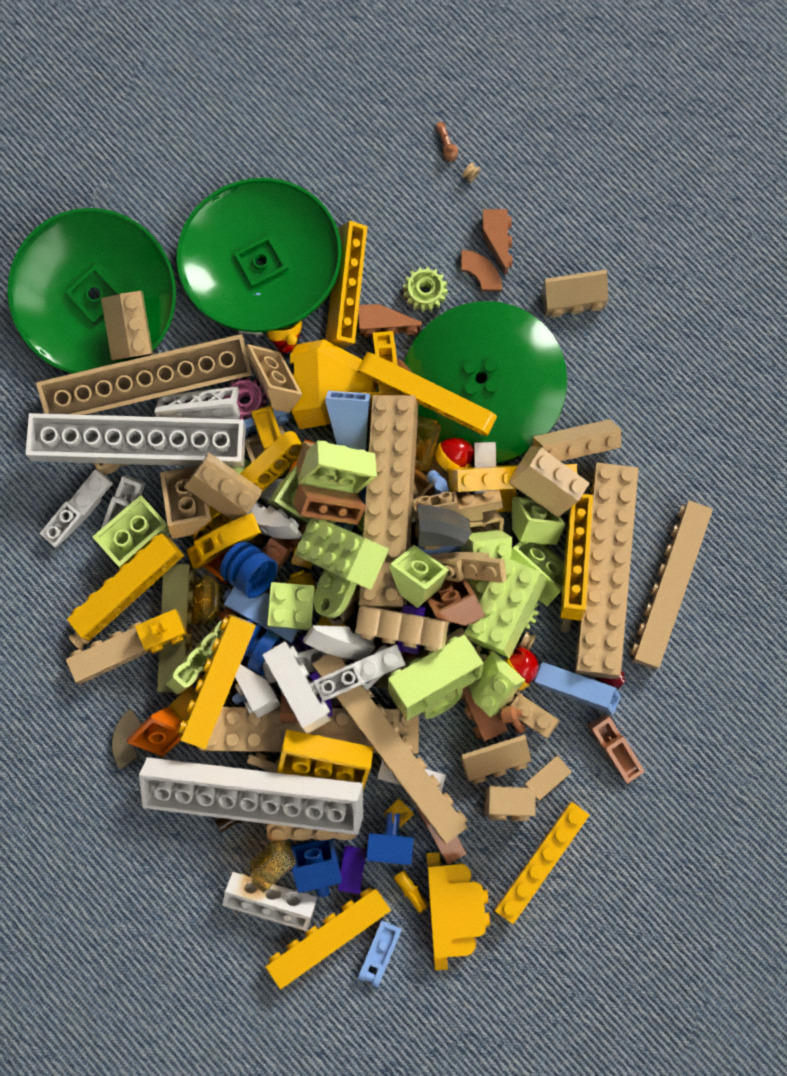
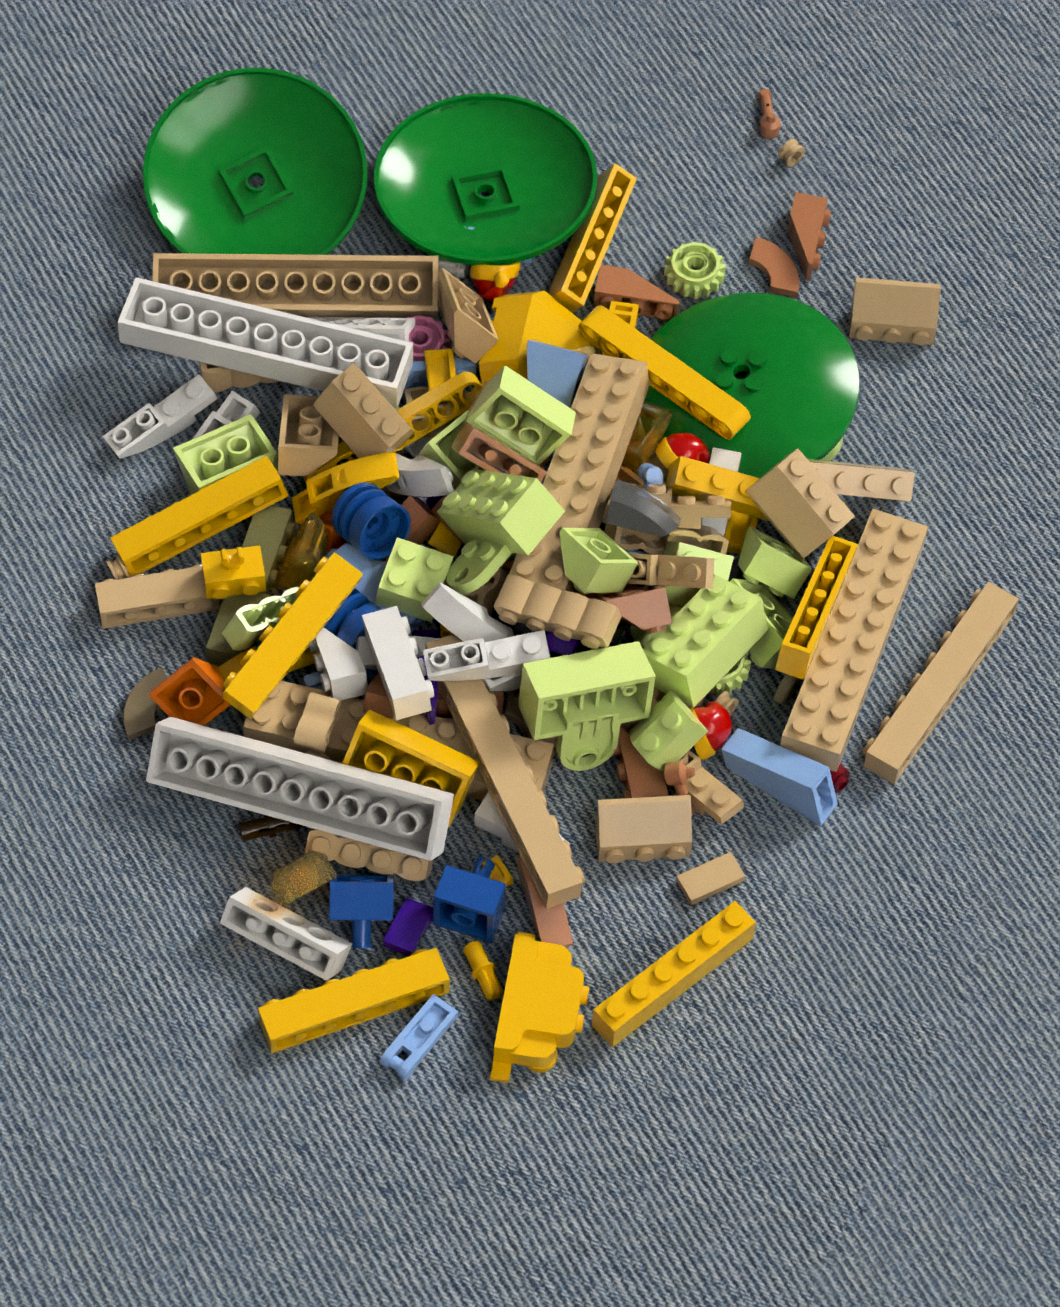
camera: 10 degrees right, 20 degrees down
(127, 325) = (290, 214): tan slope -> none
(251, 740) = (317, 721): none -> tan axle
(509, 801) = (647, 870): tan brick -> none
(616, 748) = (814, 860): nougat slope -> none

